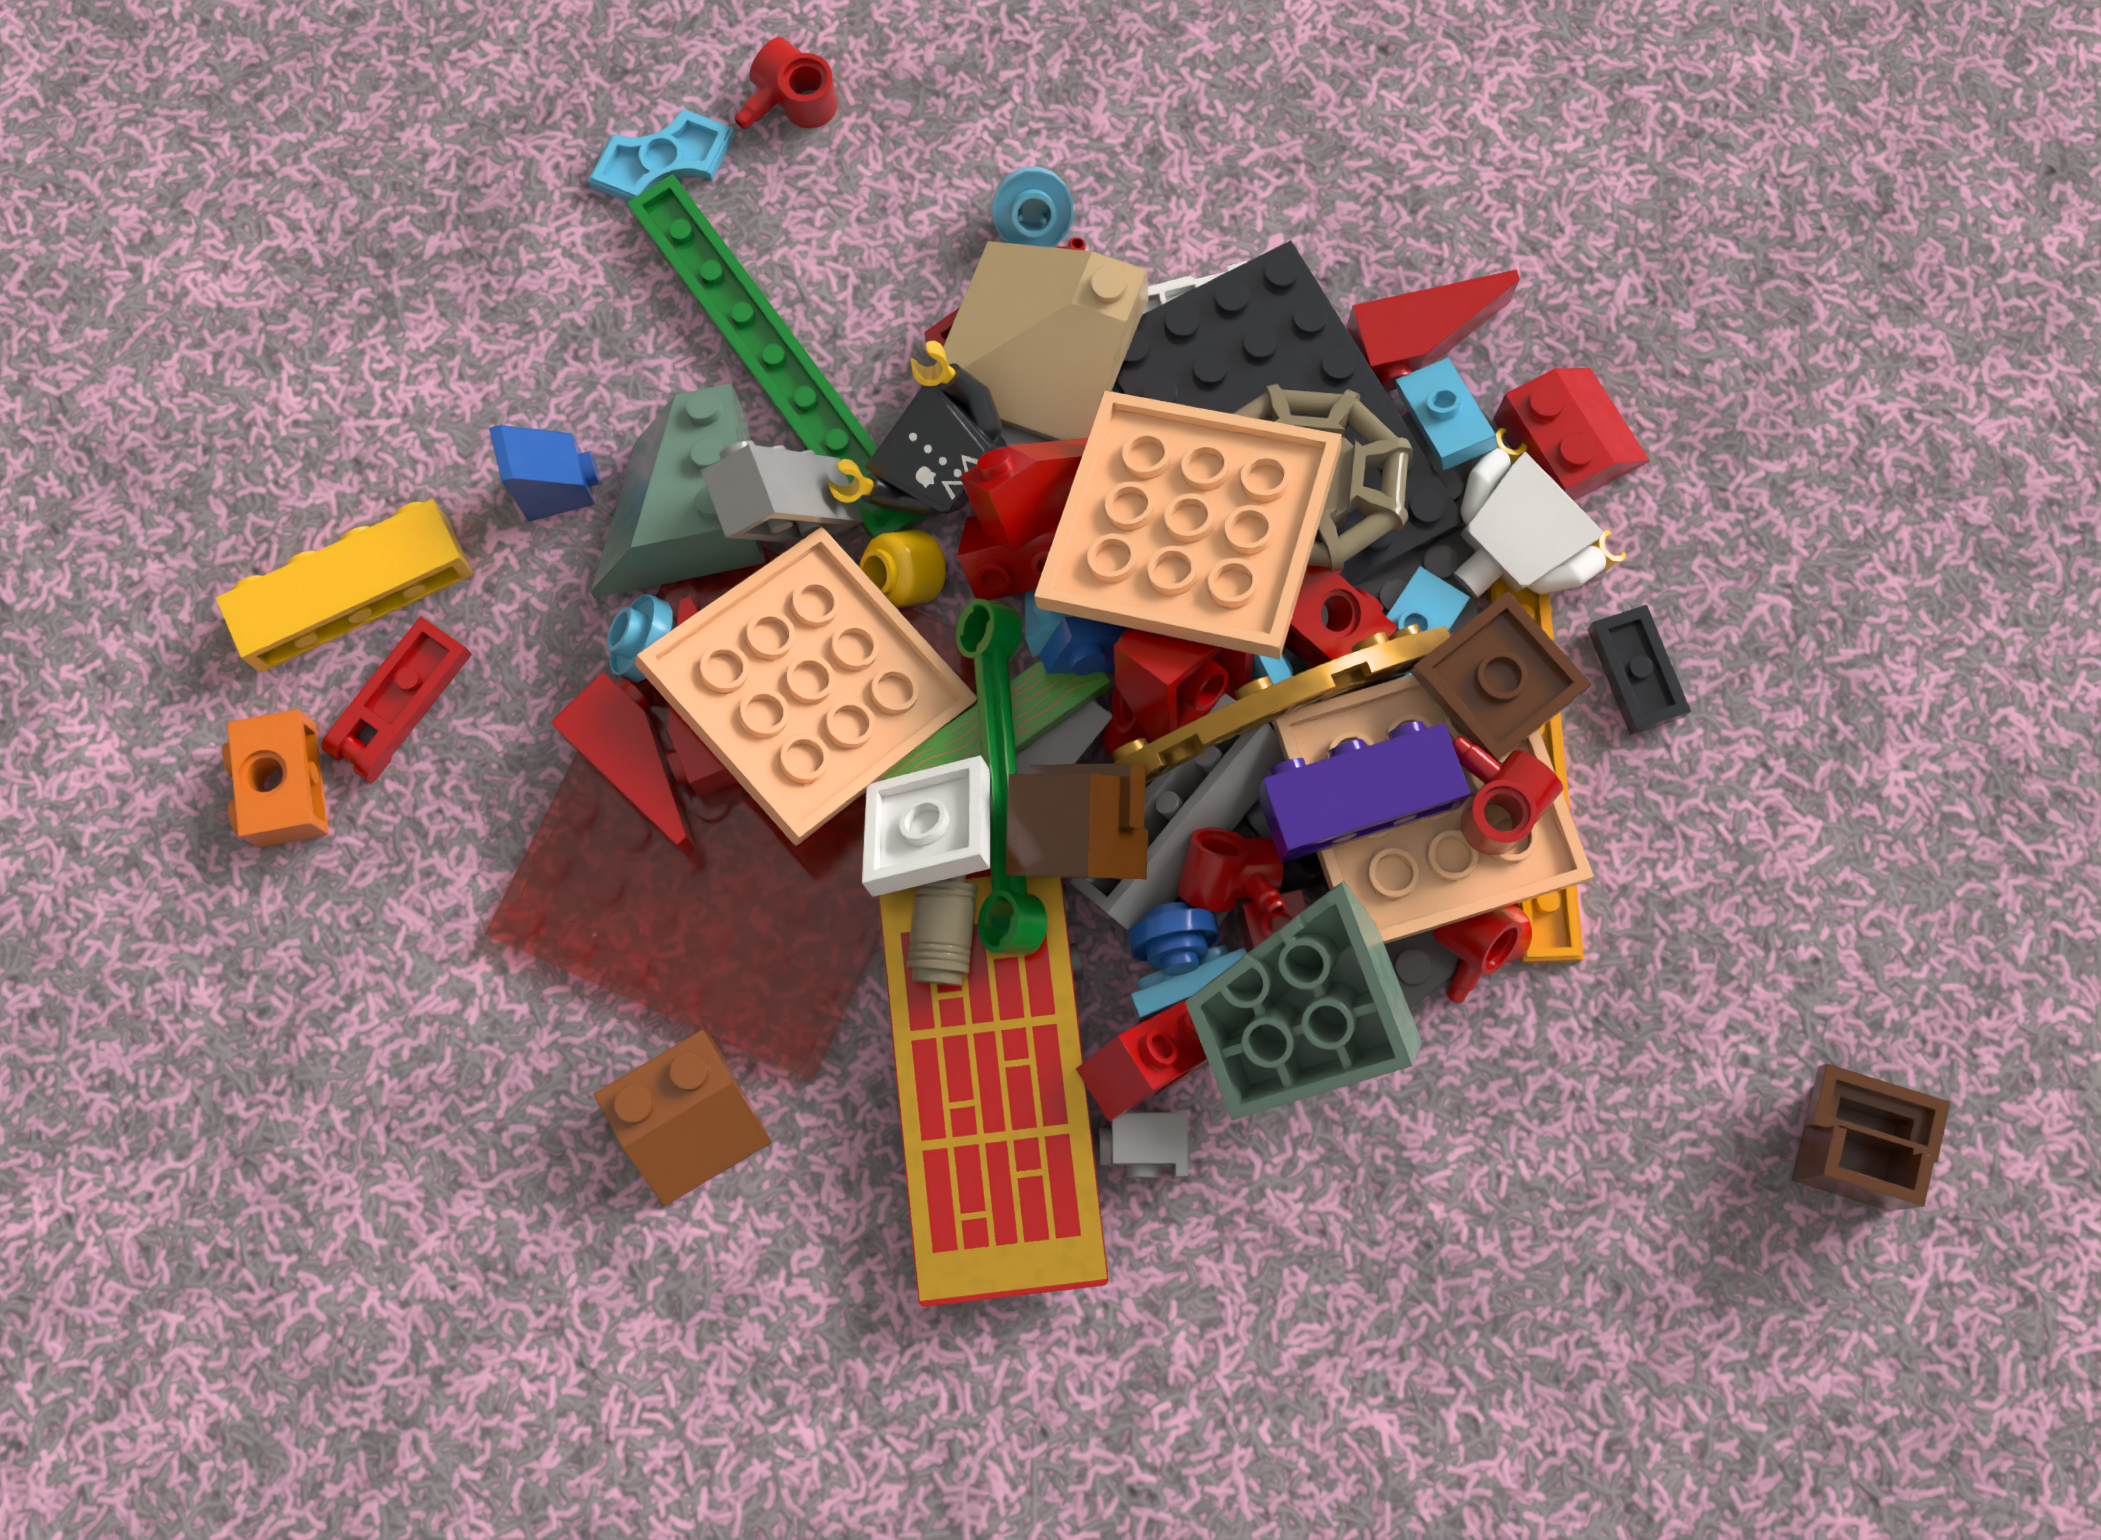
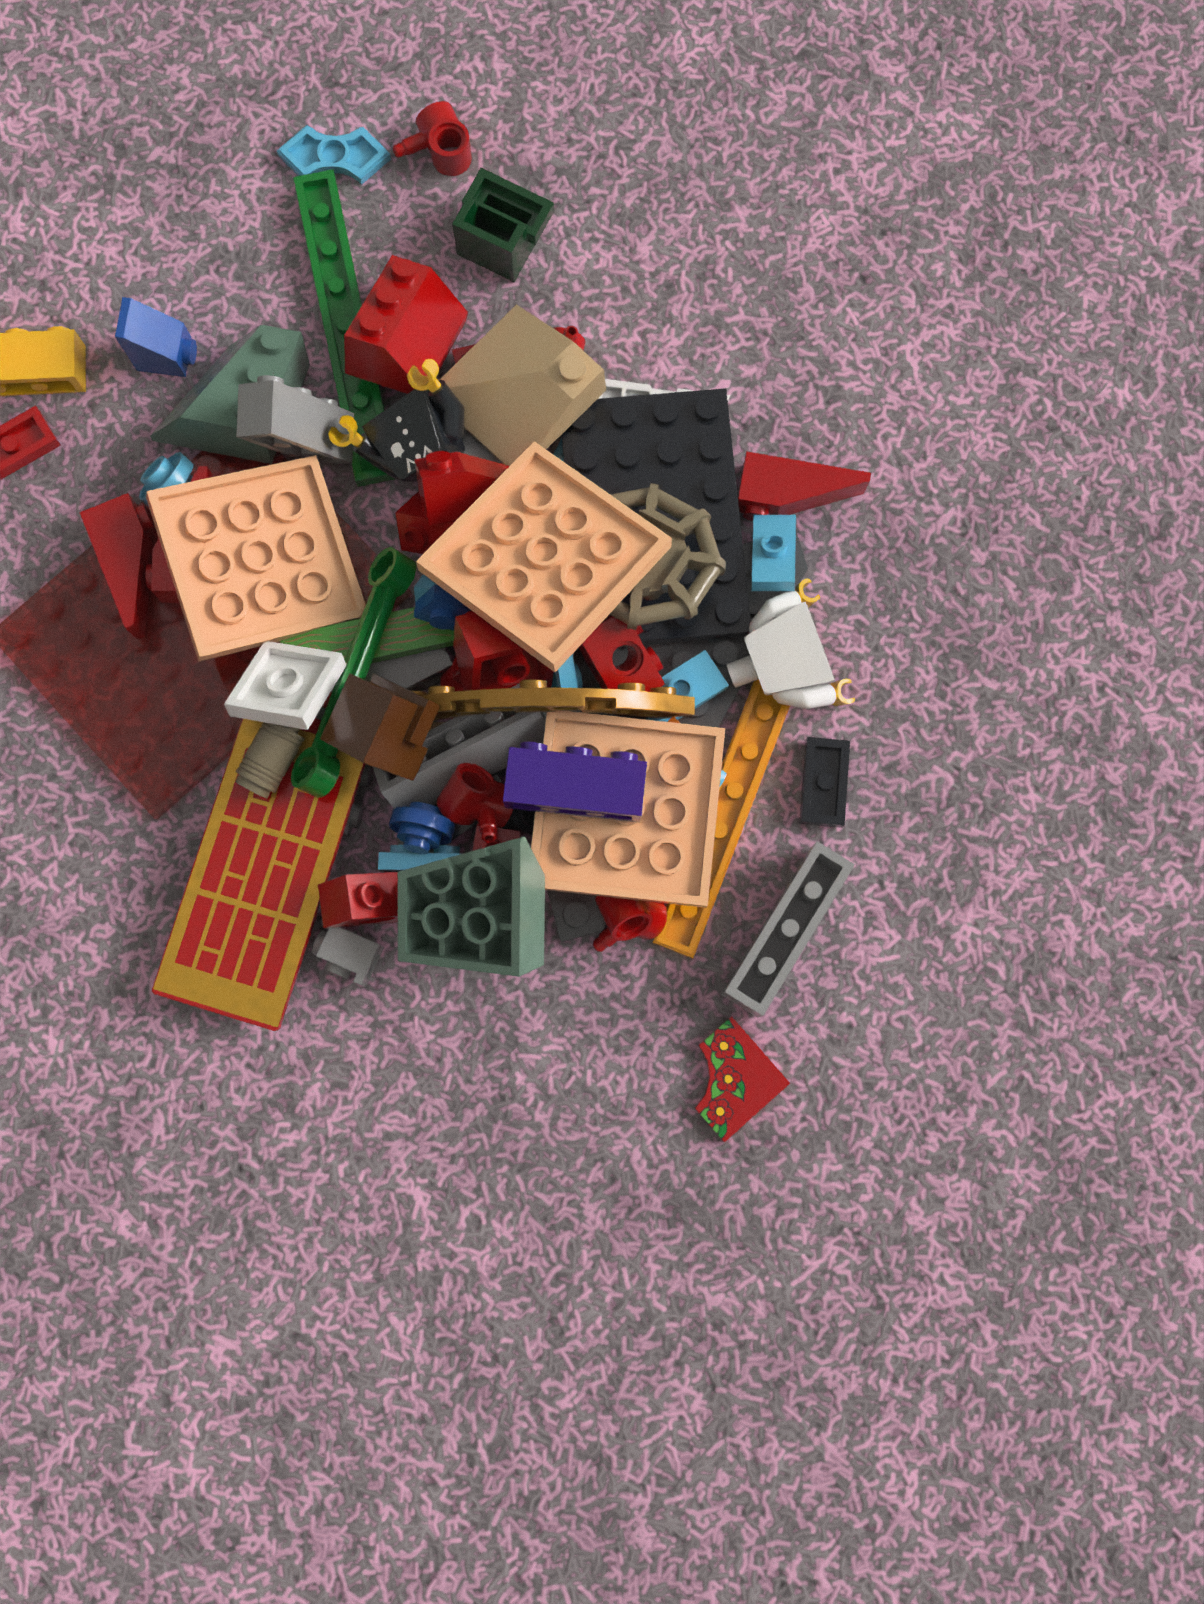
camera: 20 degrees right, 5 degrees up
(683, 1117) = (60, 806): dark orange slope -> none
(857, 328) = (401, 324): none -> red slope
(905, 567) = (363, 506): yellow head -> none
(916, 156) = (499, 224): none -> dark green plate
(1032, 200) = (565, 287): medium azure plate -> none
(1500, 677) = (705, 747): reddish brown plate -> none
(1518, 785) = (678, 821): red piece -> none
(1570, 430) = (858, 601): red slope -> none
(1688, 871) = (787, 929): none -> light grey brick
(1714, 1088) = (739, 1079): none -> red tile
(1870, 1139) = (820, 1155): reddish brown plate -> none

